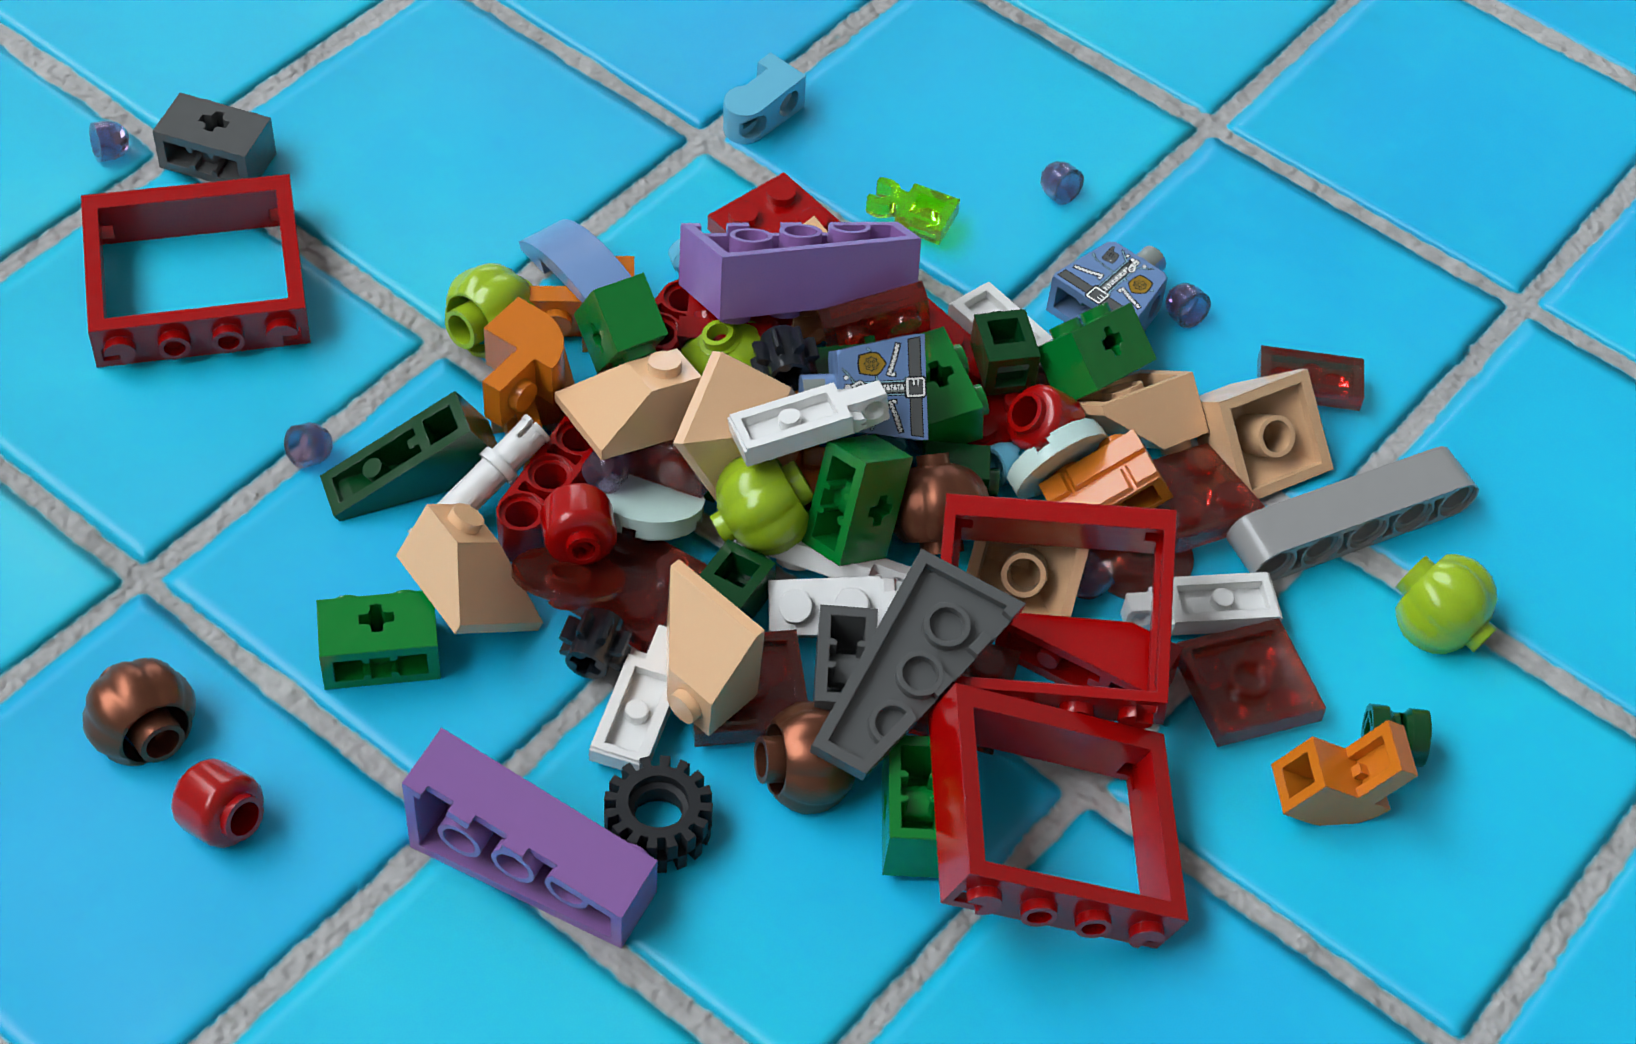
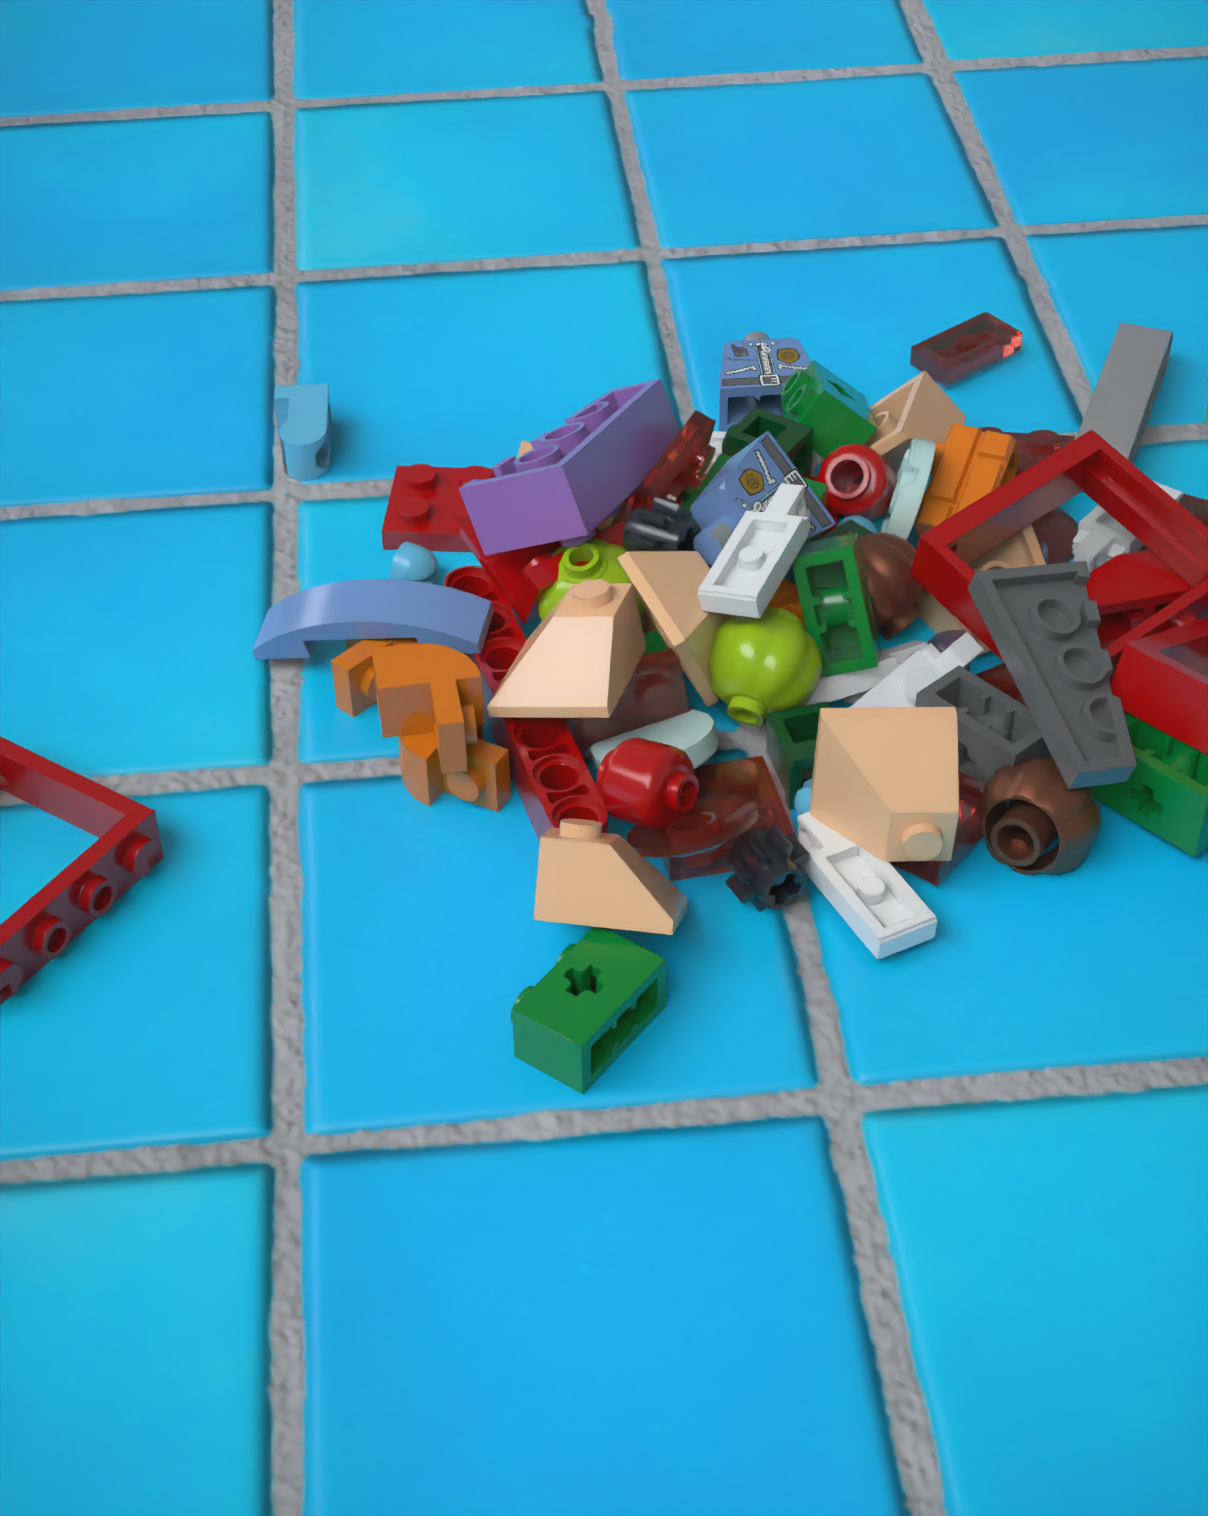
camera: 40 degrees left, 10 degrees down
(144, 703) = (464, 1233): copper plant -> none
(218, 803) = (651, 1239): red head -> none
(307, 444) = (280, 923): hinge -> none
(410, 461) = (413, 860): dark green slope -> none
(477, 299) = (300, 707): lime plant -> none
(498, 465) = (508, 802): white pin -> none
(525, 841) = (942, 1042): medium lavender wedge -> none
(599, 472) = (602, 734): clear purple hinge -> none
(620, 323) = (497, 603): green brick -> none
(666, 785) = (988, 974): black tyre -> none
(919, 210) = (527, 424): clear neon green plate -> none
(1061, 182) = (610, 343): hinge -> none
(1187, 304) = (823, 351): hinge -> none
(1268, 431) = (997, 385): light nougat slope -> none

